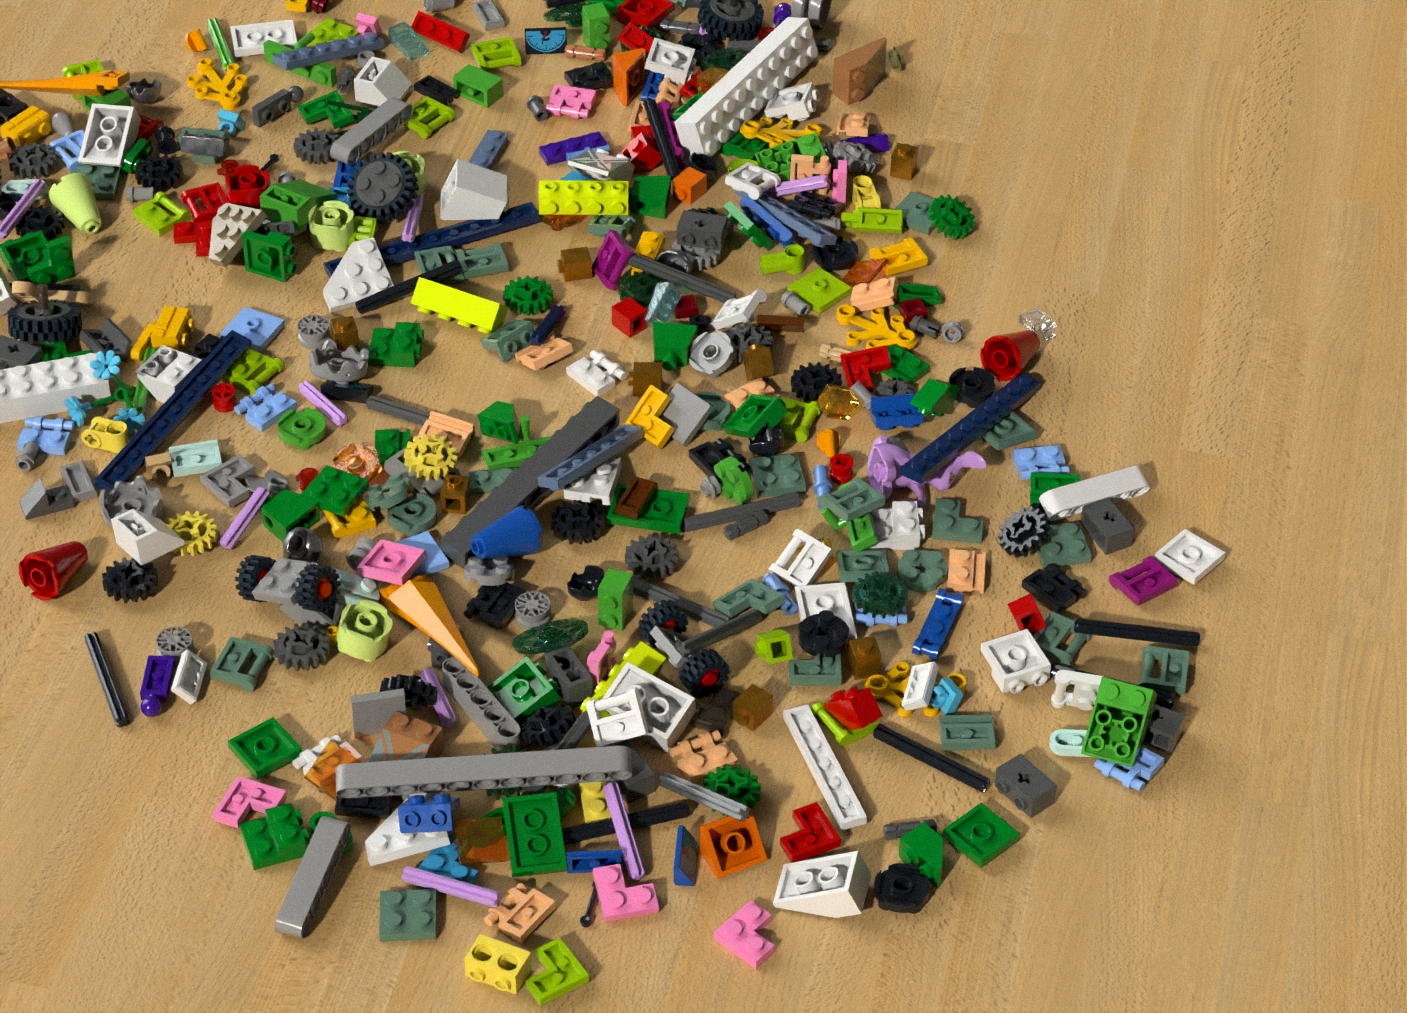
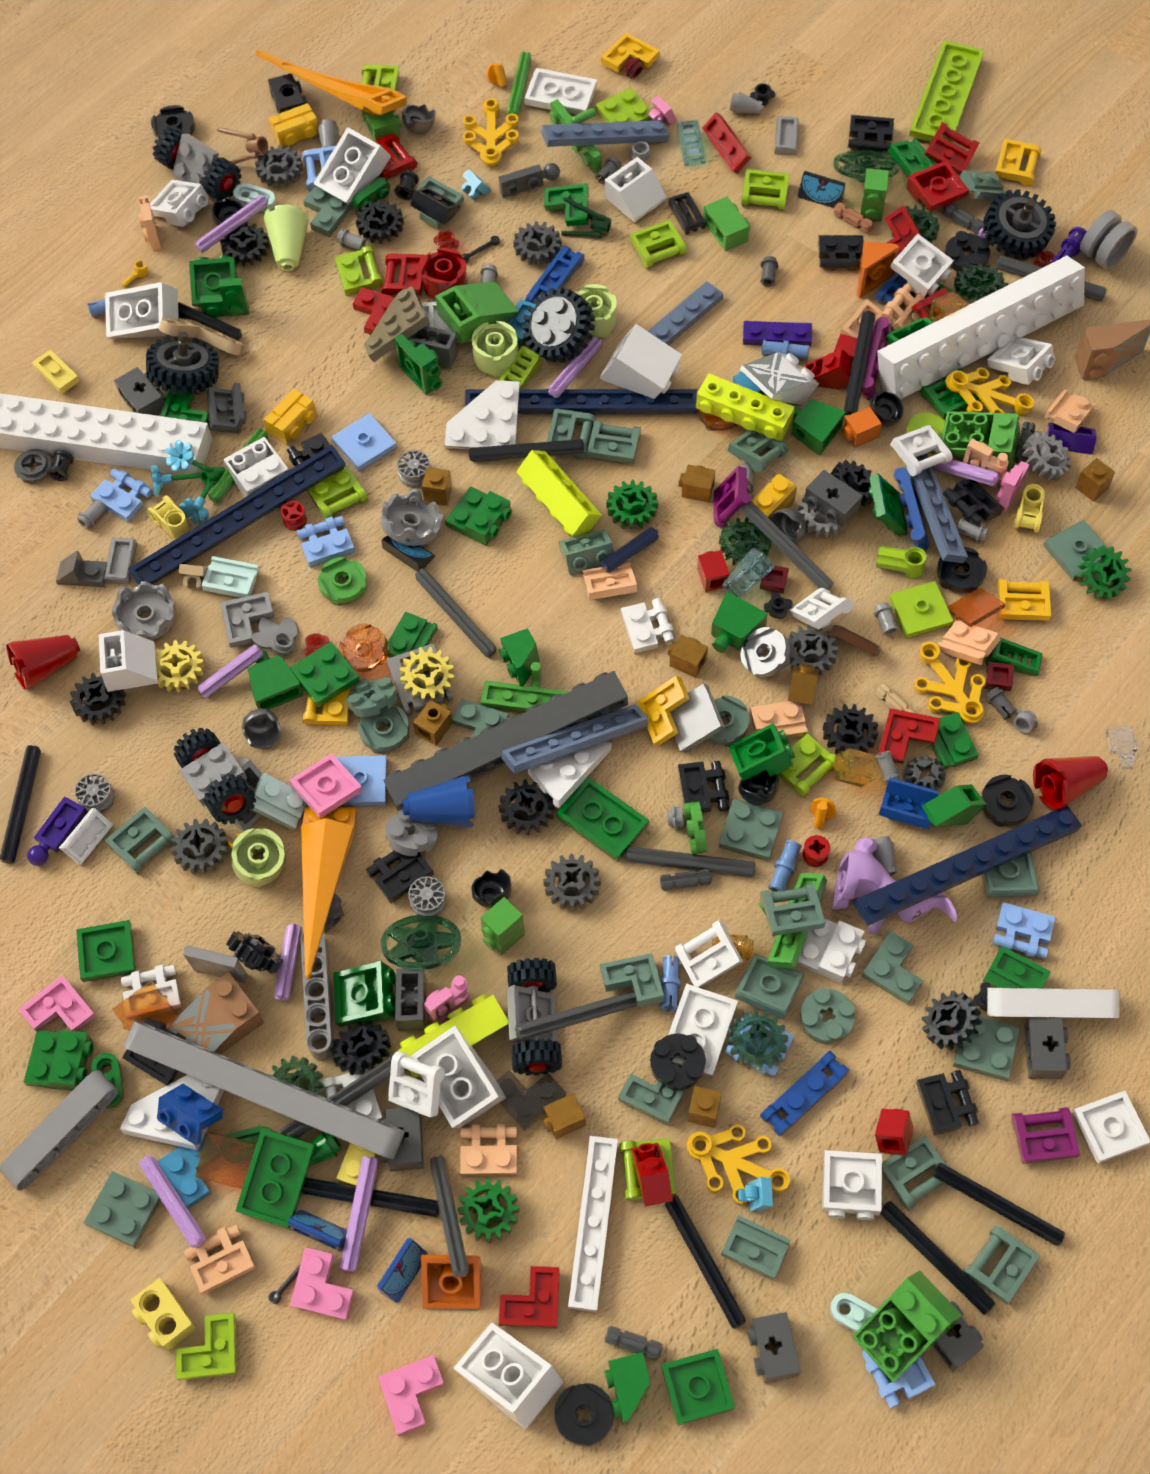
camera: 30 degrees right, 20 degrees up
(143, 342) = (256, 422): yellow piece -> none
(323, 403) = (378, 558): lavender axle -> none
(360, 551) = (311, 757): light grey wheel -> none
(371, 131) = (590, 247): light grey beam -> none
(451, 428) = (463, 645): light nougat plate -> none
(578, 98) = (810, 270): bright pink plate -> none
(636, 498) = (593, 804): reddish brown tile -> none
(689, 607) = (565, 944): dark grey axle -> none
(774, 646) = (622, 1052): lime brick -> none
(874, 220) = (1024, 544): lime hinge -> none
(920, 686) = (736, 1172): white plate -> none
(966, 571) = (871, 1036): light nougat plate -> none
(1084, 691) = (895, 1266): white plate -> none

